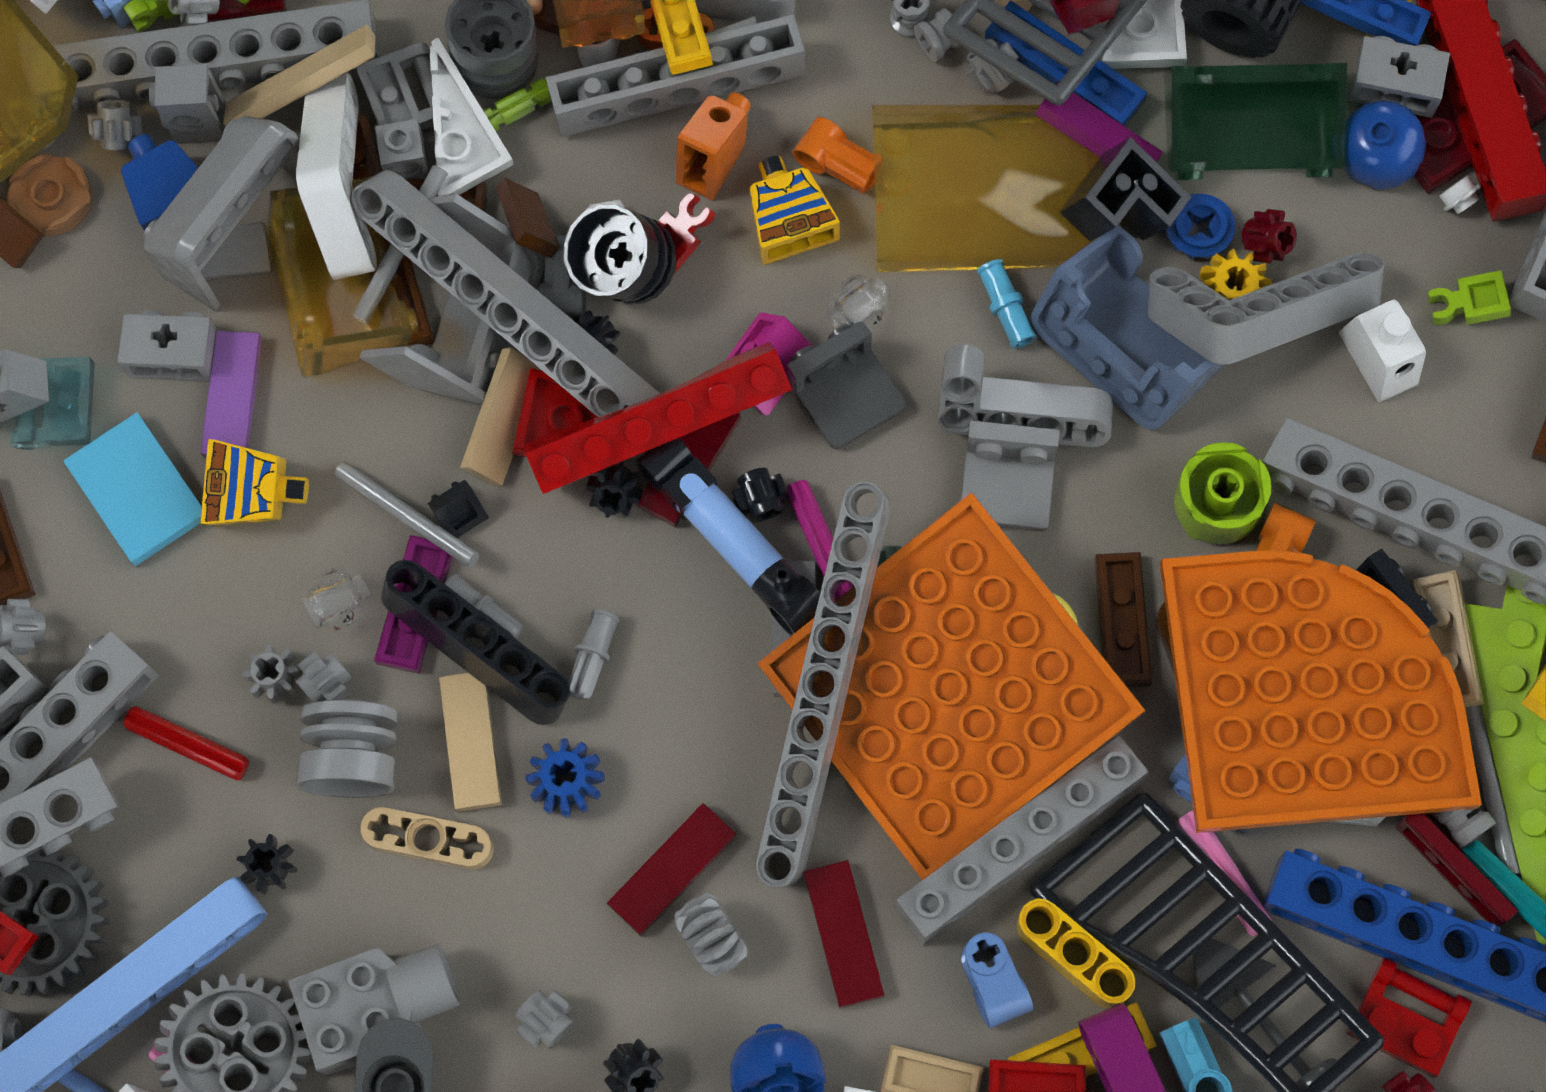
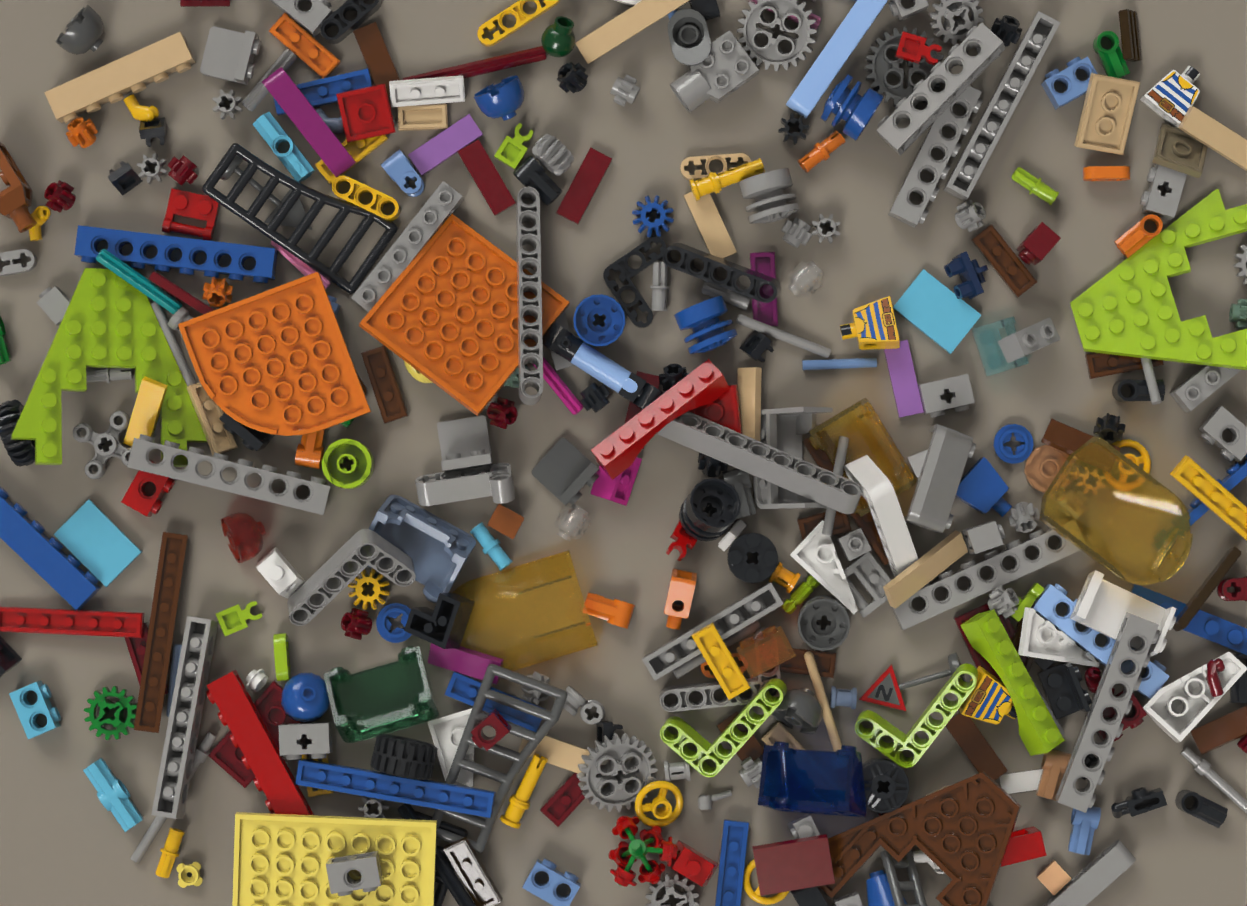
camera: 165 degrees right, 15 degrees up
(57, 531) = (969, 273): none -> dark blue hips
(82, 231) = (1021, 452): none -> blue gear
(147, 866) = (851, 107): none -> blue wheel
(186, 743) = (859, 181): red axle -> none
(232, 812) = (821, 151): none -> orange pin
(328, 447) = (839, 363): none -> medium blue bar
(433, 803) = (715, 182): none -> yellow pin
(527, 218) = (770, 521): reddish brown tile -> none
(530, 558) = (706, 325): none -> blue wheel
(533, 133) = (784, 577): none -> light orange bush
(564, 154) = (766, 557): none -> black brick
(639, 693) = (628, 273): none -> black beam
(709, 592) = (584, 319): none -> blue wheel
(756, 907) = (532, 174): none -> black piece
(782, 969) = (513, 150): none -> lime plate
(790, 212) = (626, 568): torso -> none
(903, 1015) = (445, 145): none -> medium lavender tile
(924, 506) = (502, 412): none -> dark red gear
(973, 326) = (506, 521): none -> dark orange panel
(1391, 855) = (217, 292): none -> orange gear
(1408, 218) = (281, 657): none -> lime beam
(1432, 423) = (244, 535): none -> clear red cylinder

